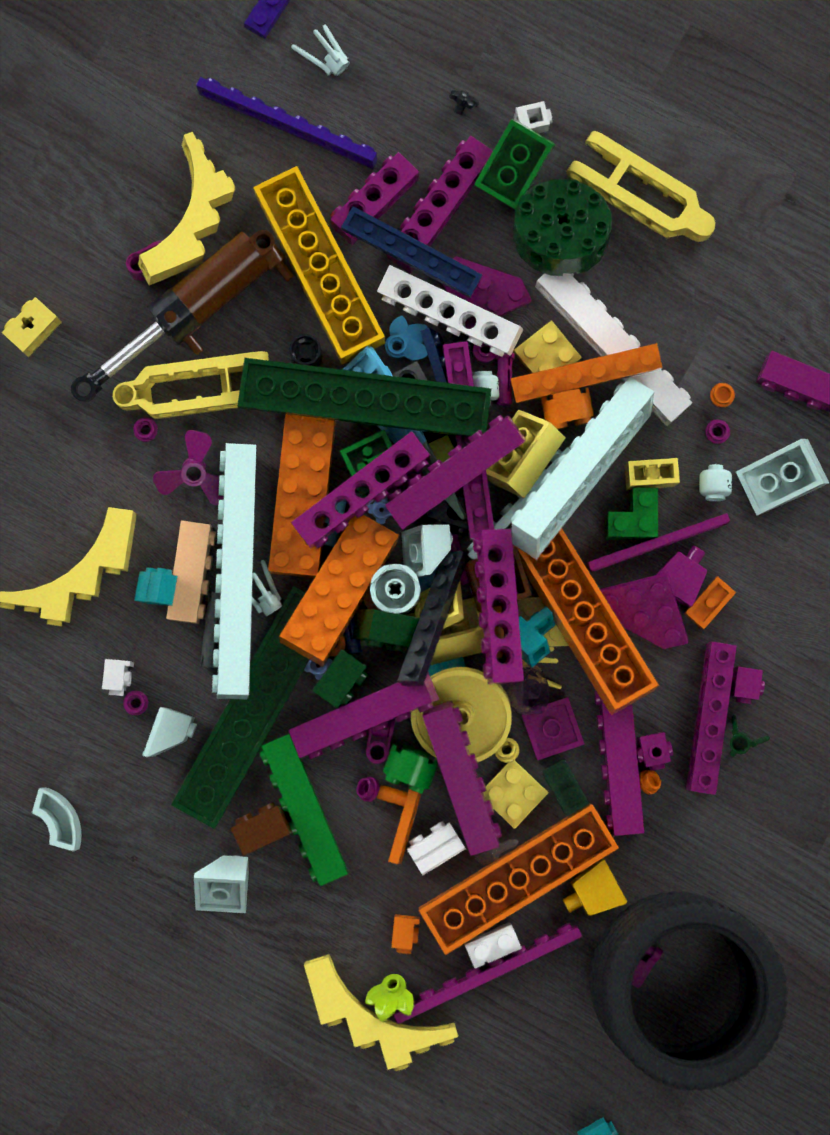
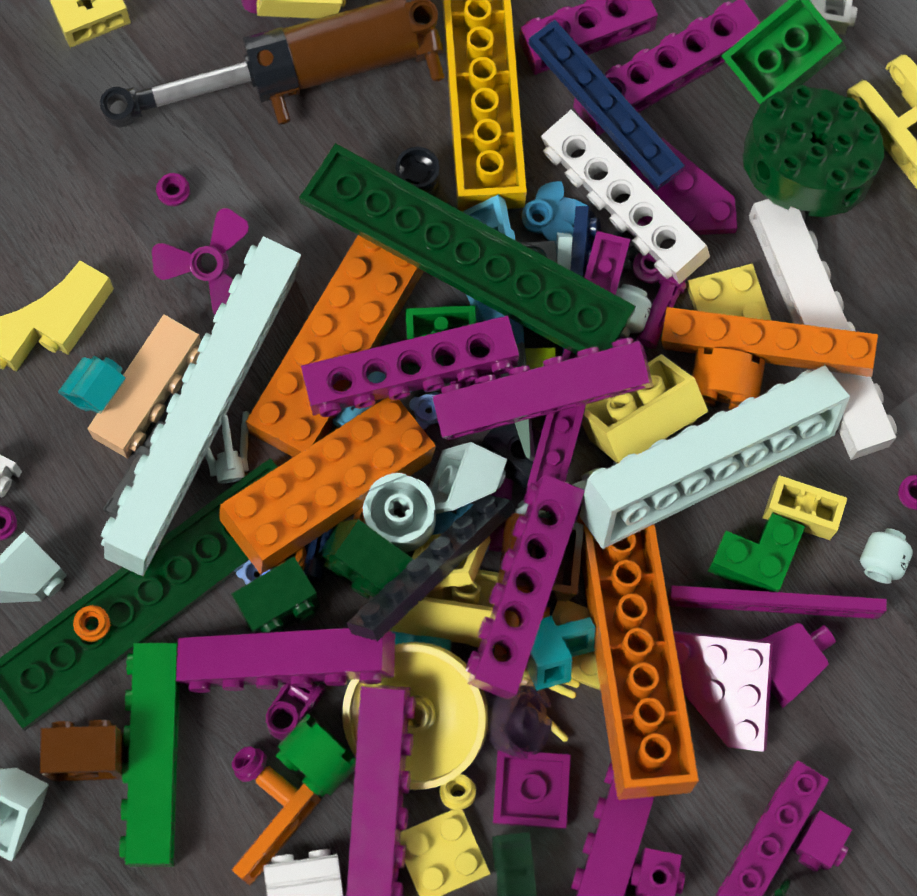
camera: 25 degrees right, 10 degrees down
(138, 394) = (185, 140): light yellow piece -> none
(220, 744) = (86, 614): none -> orange plate
(425, 364) = (564, 249): none -> light aqua tile
(710, 603) = (815, 711): orange plate -> none

